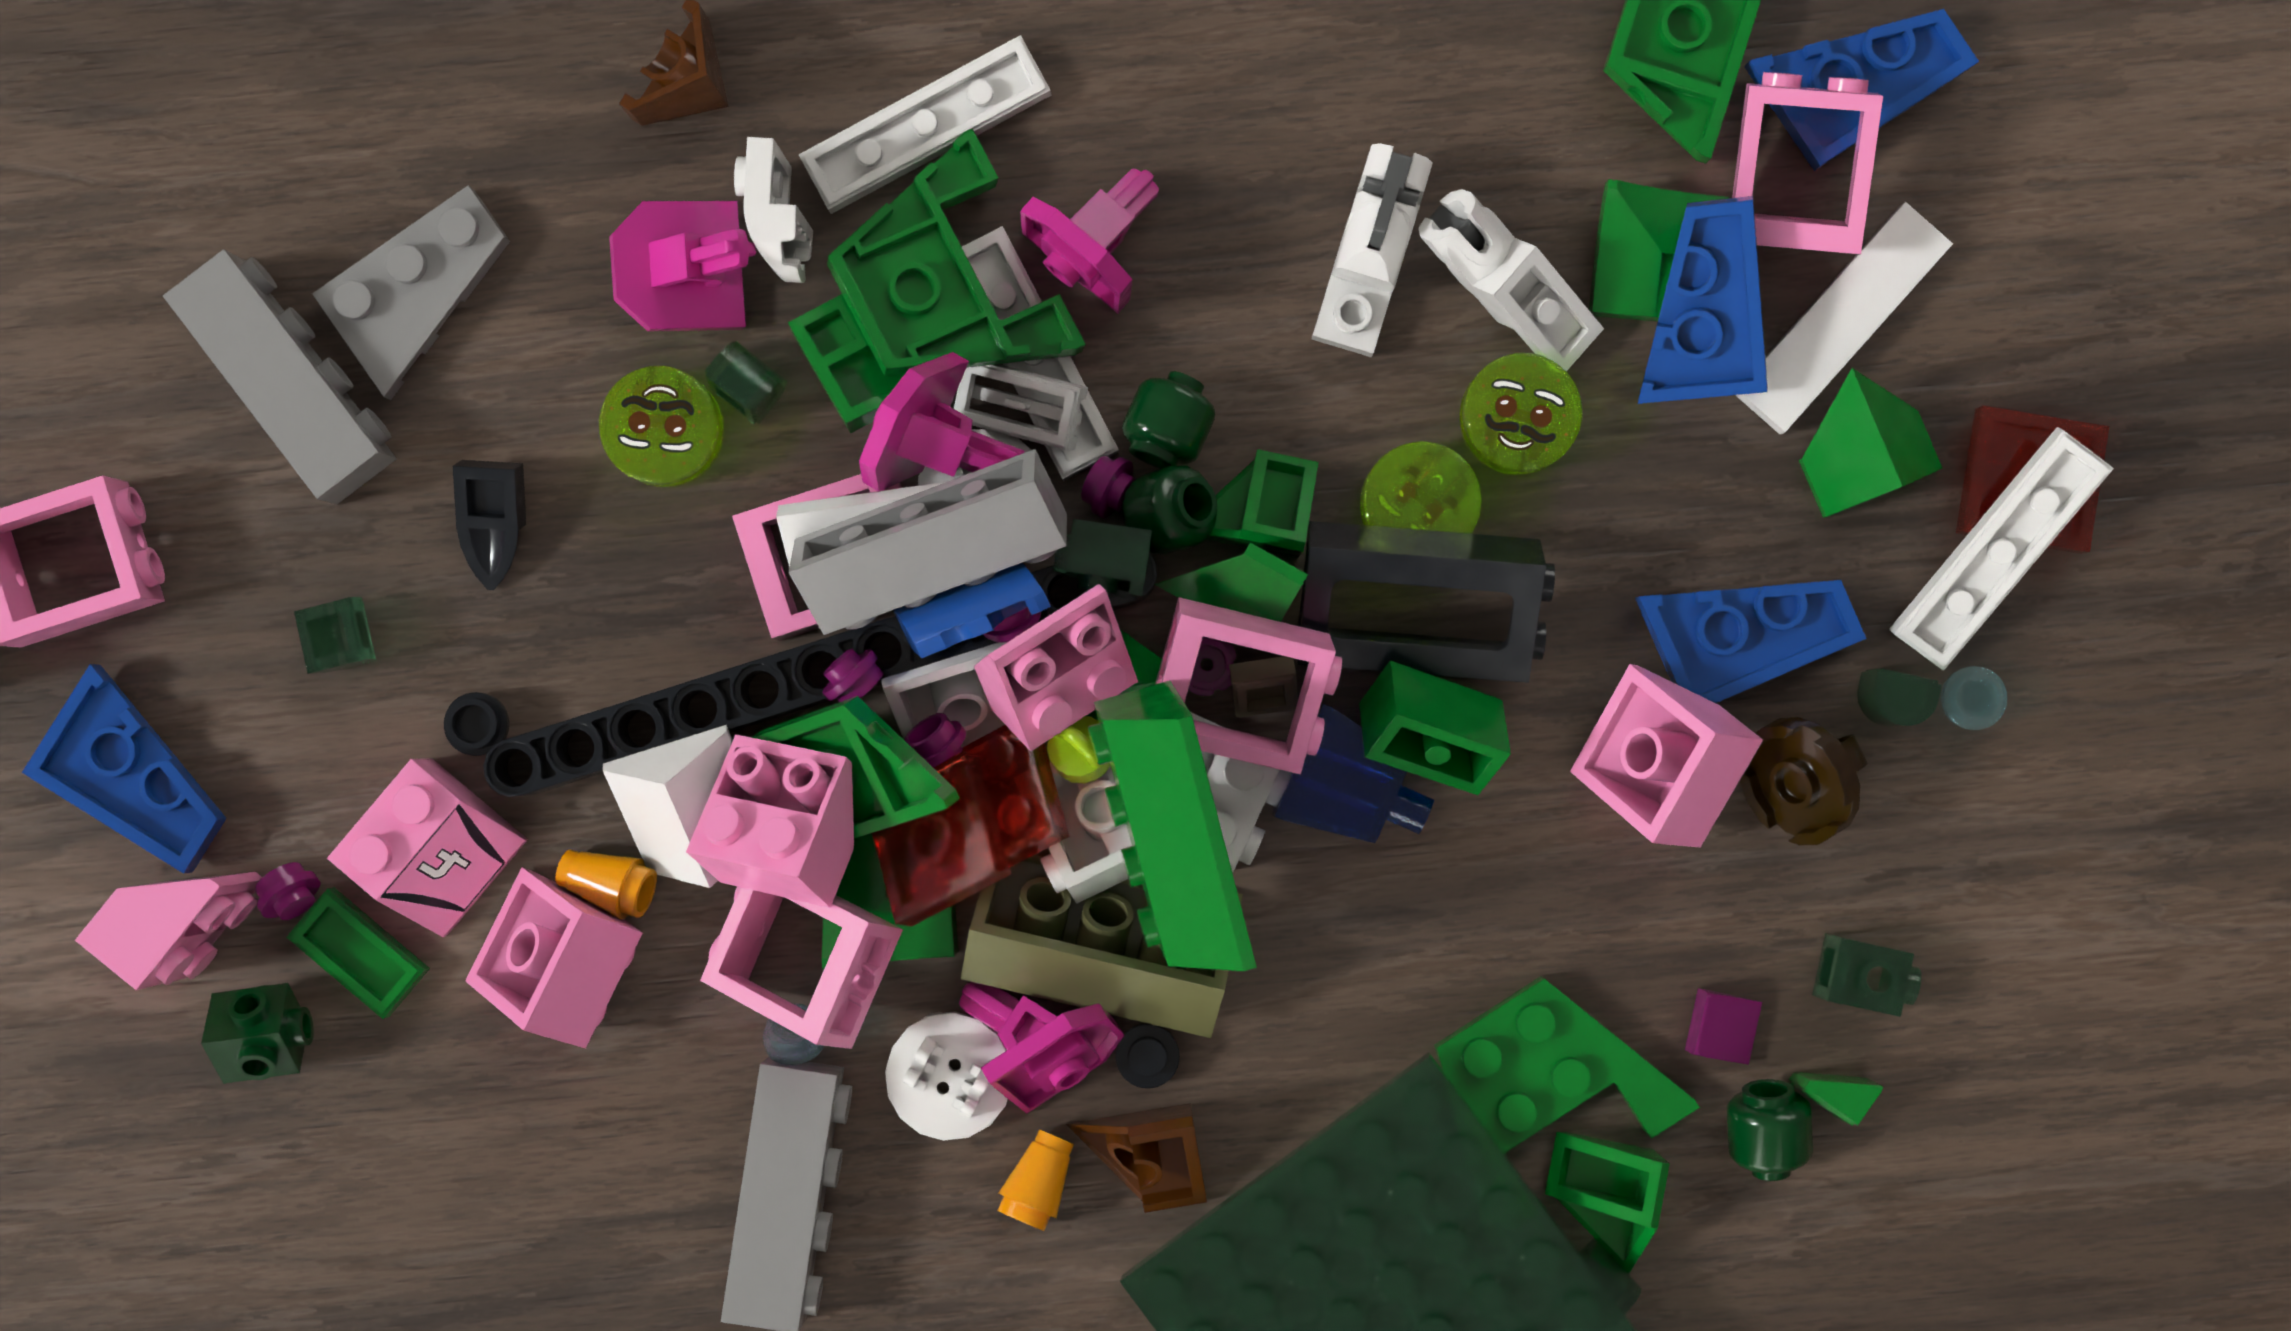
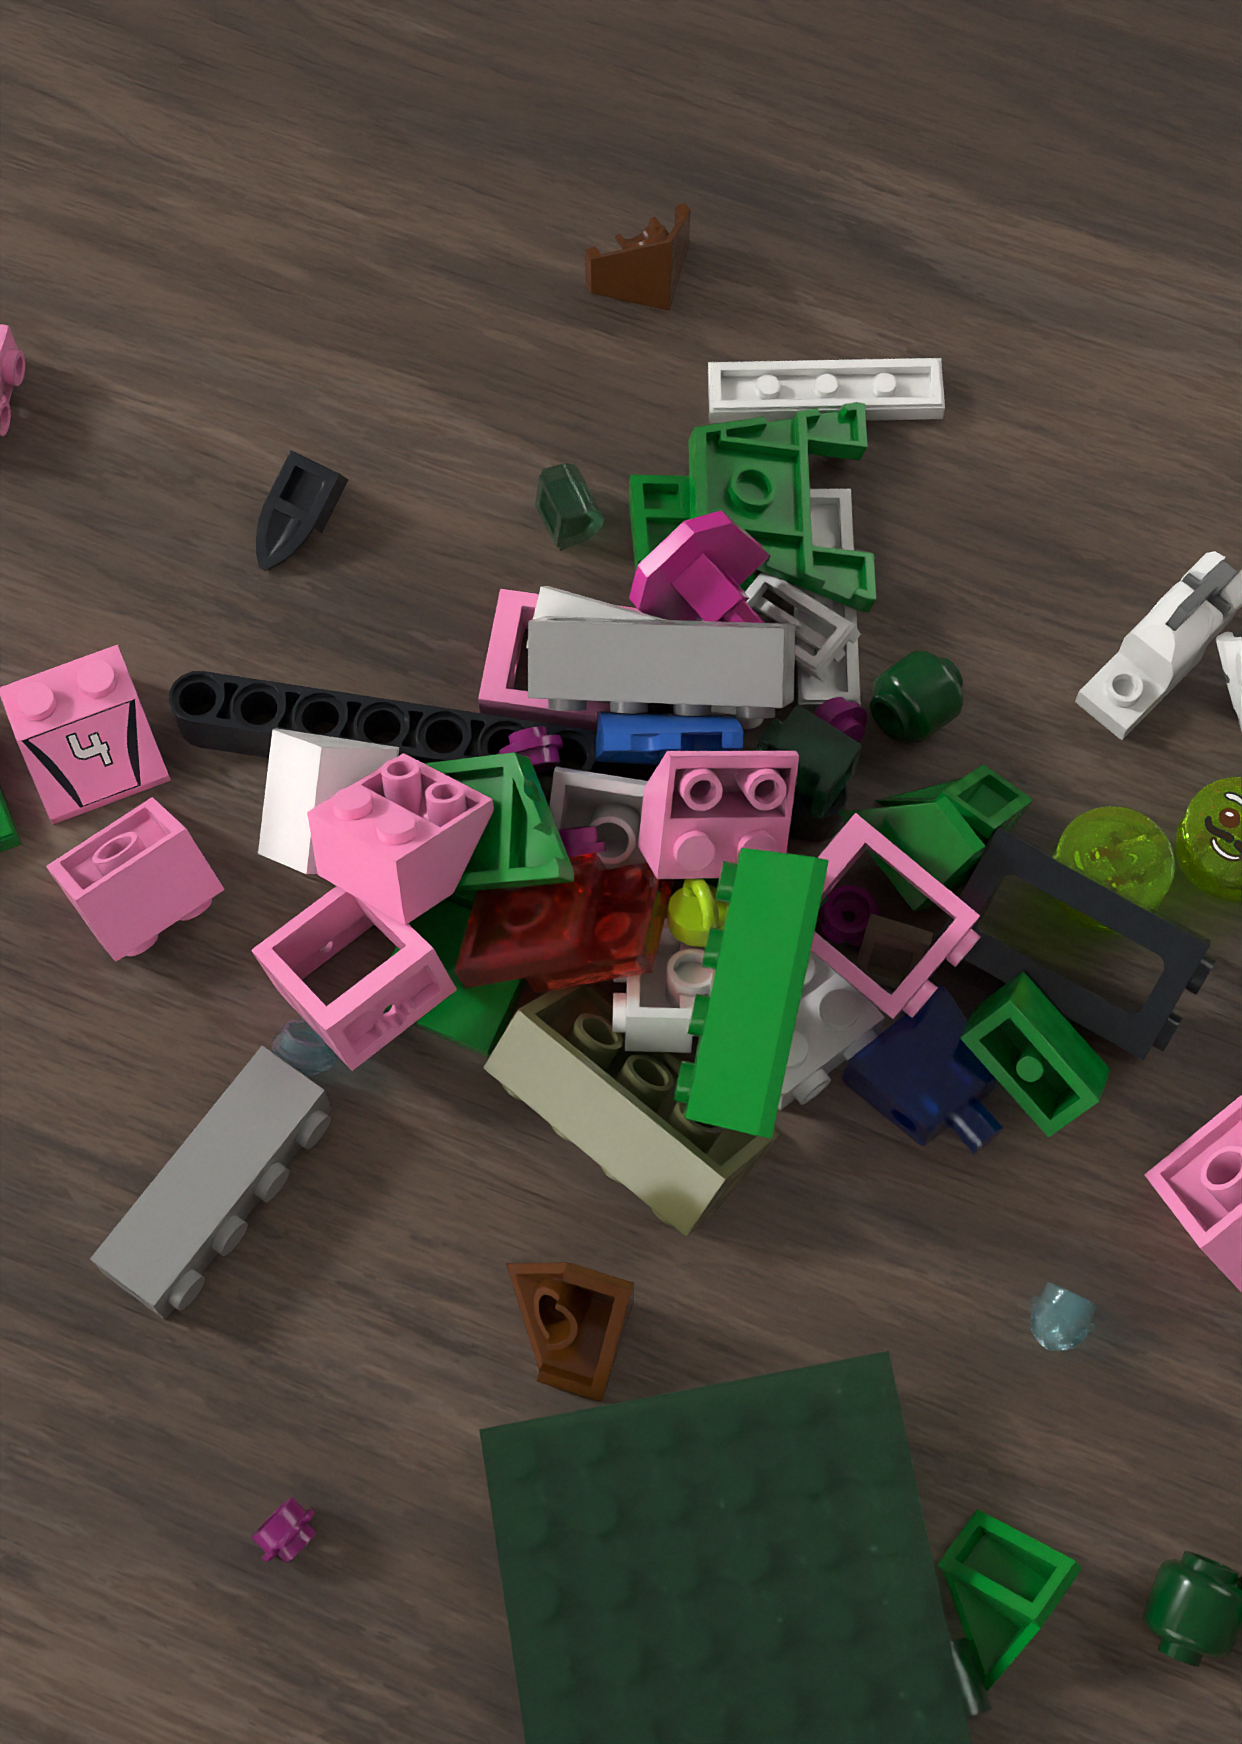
camera: 20 degrees right, 20 degrees down
(281, 376) = (193, 331): light grey brick -> none
(335, 635) = (114, 538): clear green brick -> none
(410, 286) = (328, 318): light grey wing -> none
(476, 723) = (183, 654): black plate -> none
(608, 881) = (222, 839): light orange cone -> none
(661, 426) = (479, 507): clear neon green head -> none
(681, 265) = (565, 395): dark pink piece -> none
(773, 224) = (666, 375): white slope -> none
(922, 1061) = (441, 1182): white plate -> none
(1037, 1181) = (451, 1294): light orange cone -> none
(1042, 1049) = (528, 1167): dark pink piece -> none
(1083, 245) = (919, 521): dark pink piece -> none
(1147, 1056) = (616, 1231): black plate -> none
(1174, 505) = (890, 764): dark green head -> none
(1545, 1057) = (998, 1429): green wing -> none
(1556, 938) = (1061, 1318): none -> clear light blue plate
(1723, 1026) = (1191, 1487): magenta slope -> none

